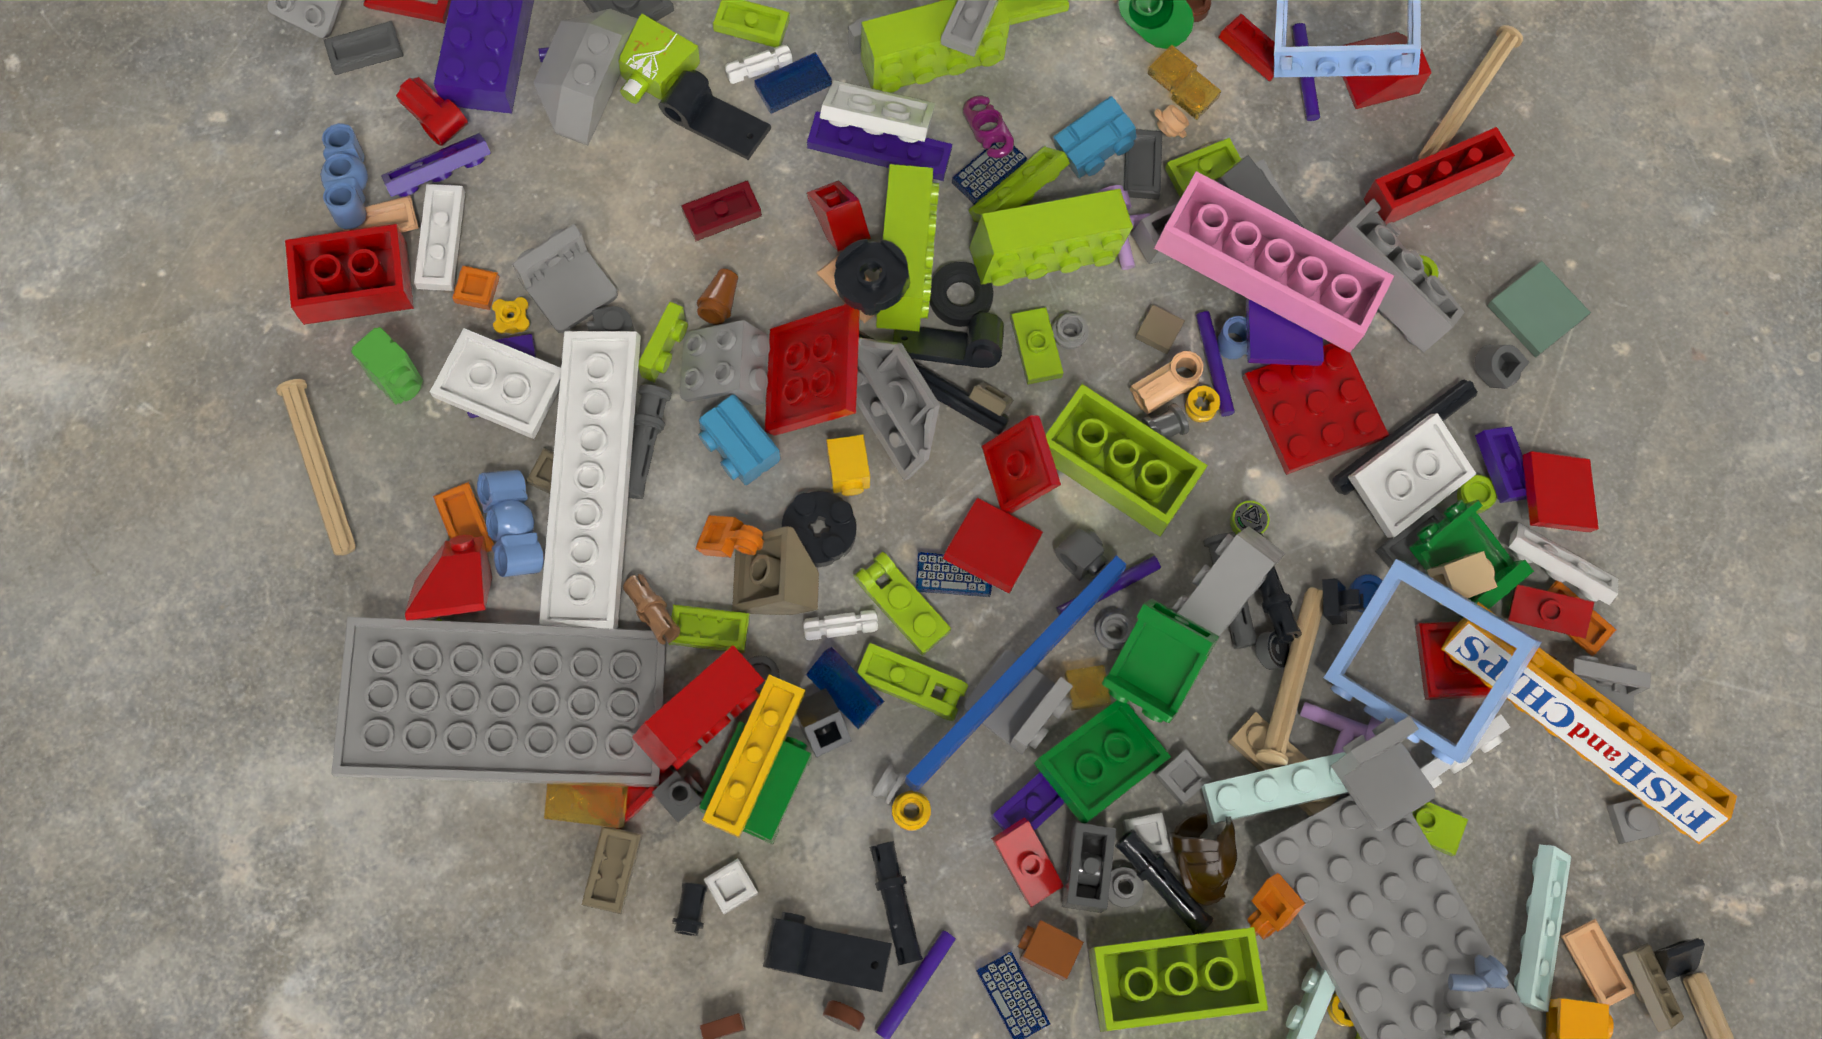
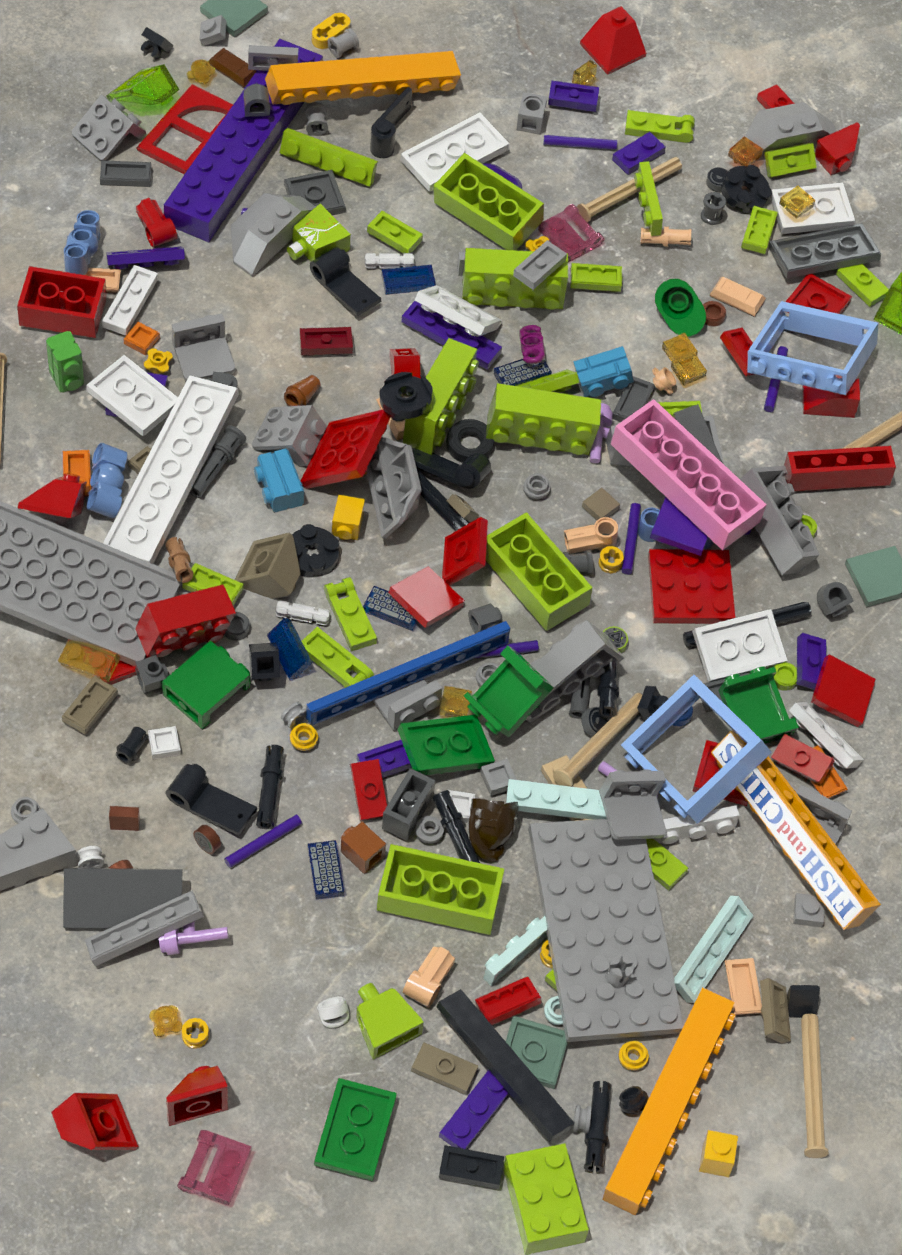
camera: 20 degrees right, 15 degrees down
(657, 353) = (252, 406): lime plate -> none
(727, 533) = (248, 532): orange plate -> none
(754, 756) = (210, 659): yellow plate -> none
(1036, 345) = (509, 489): lime plate -> none
(1276, 907) = (527, 864): orange plate -> none
(1466, 574) = (748, 710): tan brick -> none
(1488, 974) = (654, 947): sand blue plate -> none

